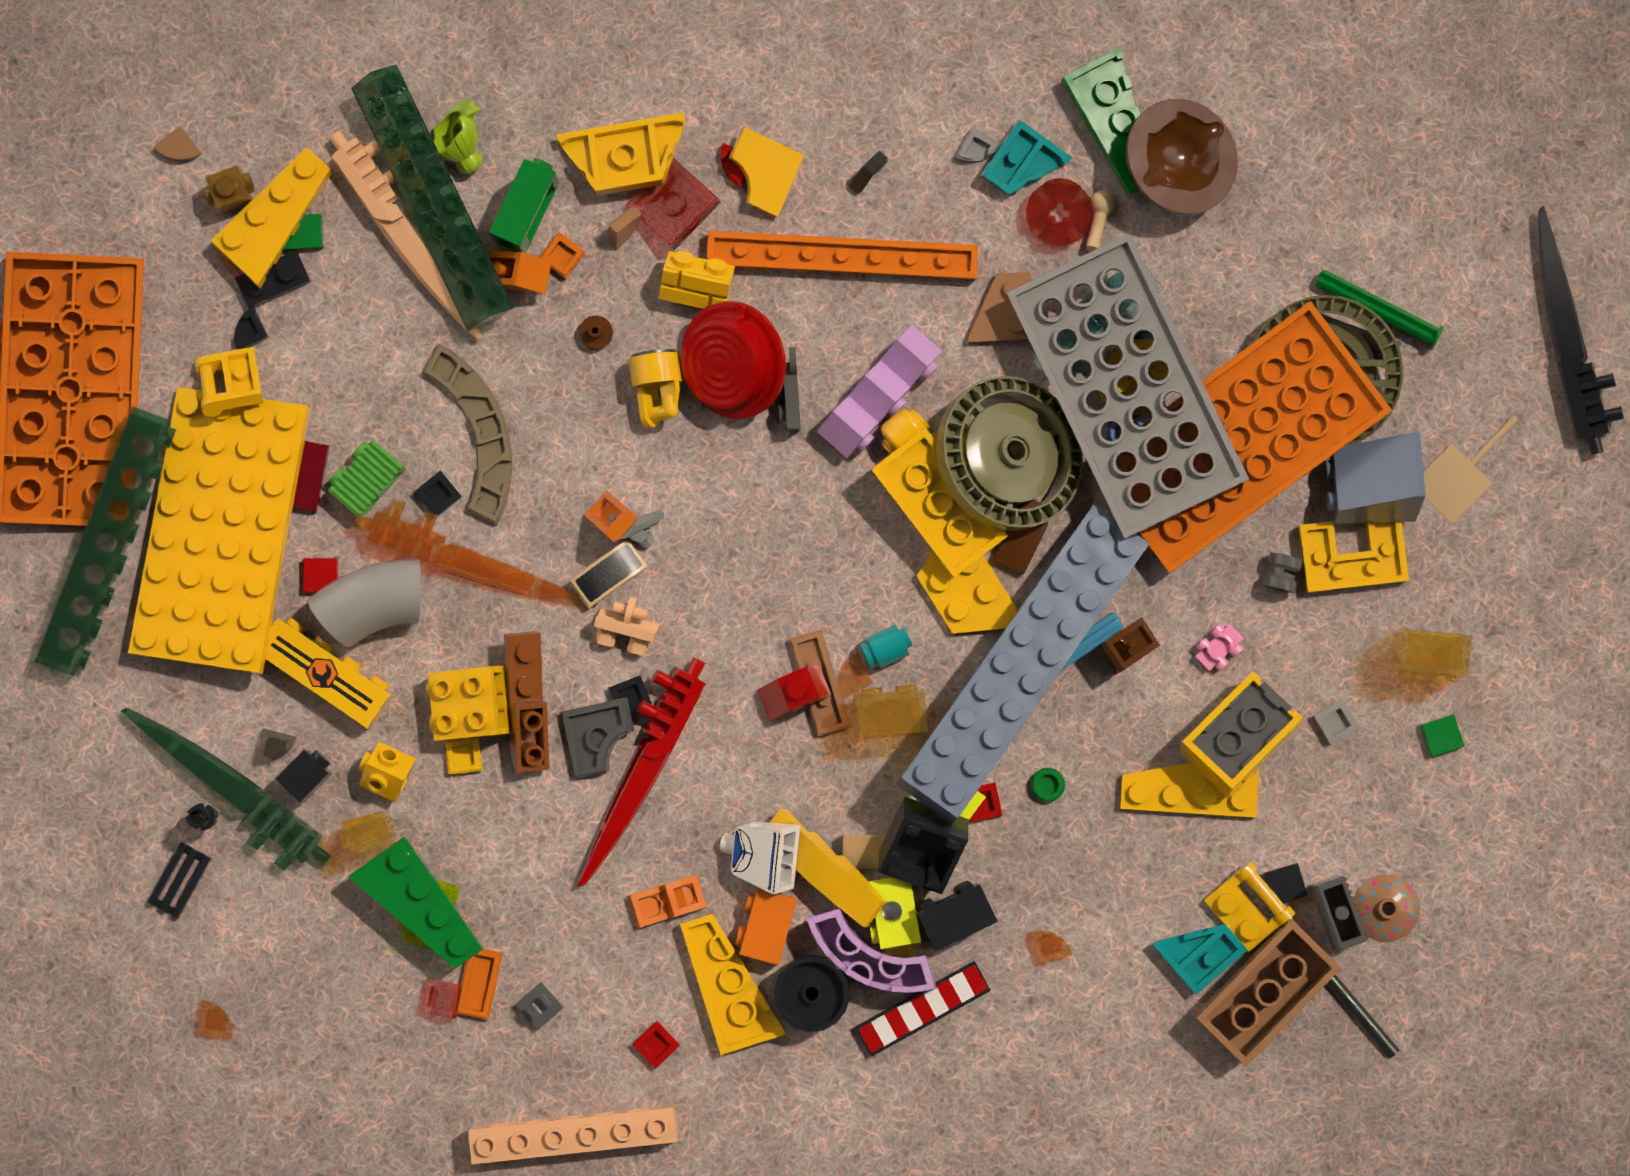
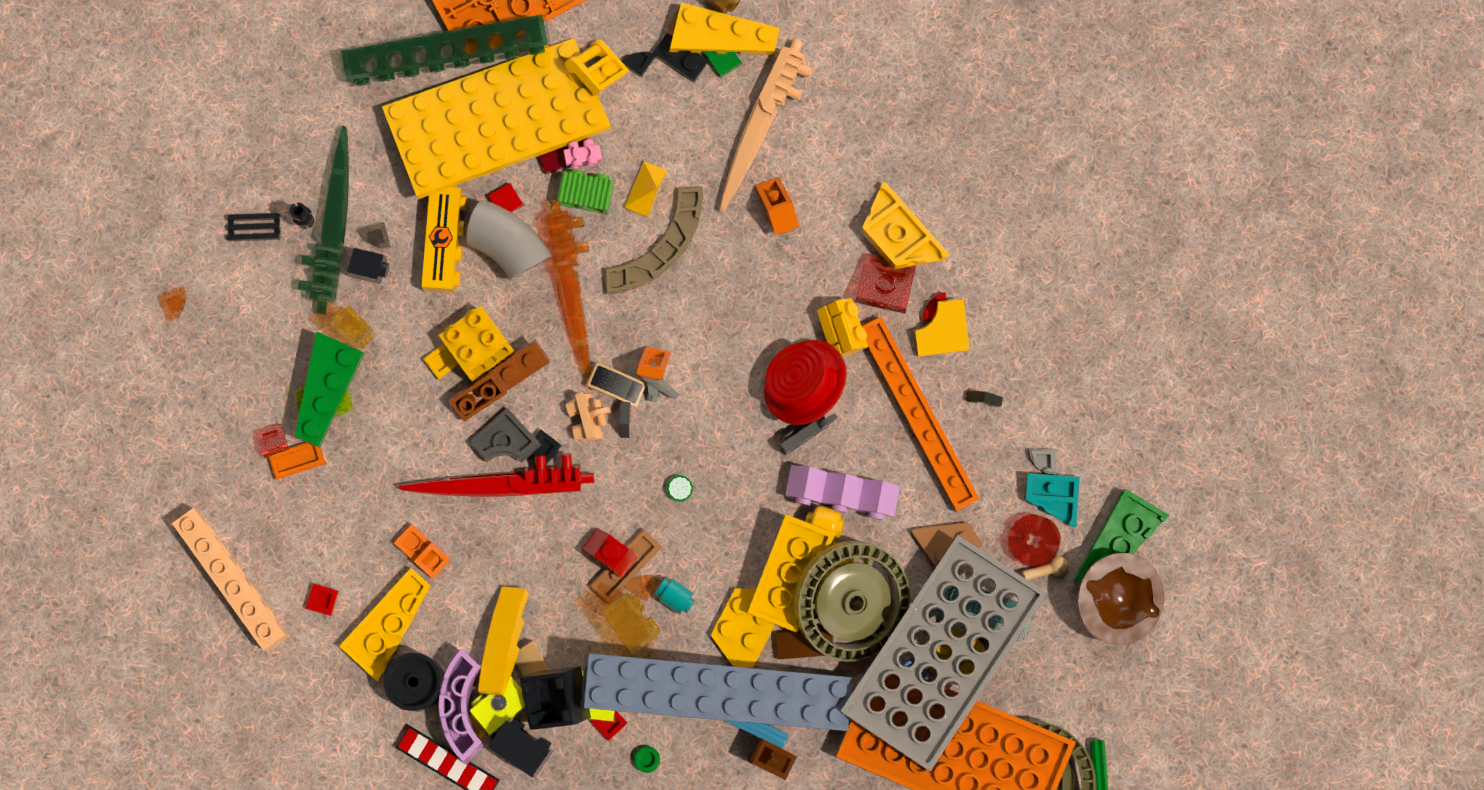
camera: 60 degrees right, 5 degrees down
(322, 459) = (586, 155): none -> bright pink piece
(386, 771) = (400, 316): yellow brick -> none
(402, 409) = (645, 189): none -> yellow slope
(432, 197) = (793, 125): clear green brick -> none
(438, 494) = (603, 244): black tile -> none
(458, 137) = (843, 120): lime hair -> none
(525, 205) = (825, 187): green window -> none
(539, 1006) = (304, 508): dark grey tile -> none
(563, 255) = (808, 232): orange tile -> none
(599, 340) = (768, 289): reddish brown tile -> none
(623, 227) = (850, 260): medium nougat tile -> none
(654, 587) = (624, 419): none -> black tile
(655, 370) = (762, 340): yellow piece -> none
(764, 854) = (488, 596): white torso -> none
(767, 926) = (442, 626): orange brick -> none
(768, 571) = (680, 488): none -> light aqua tile

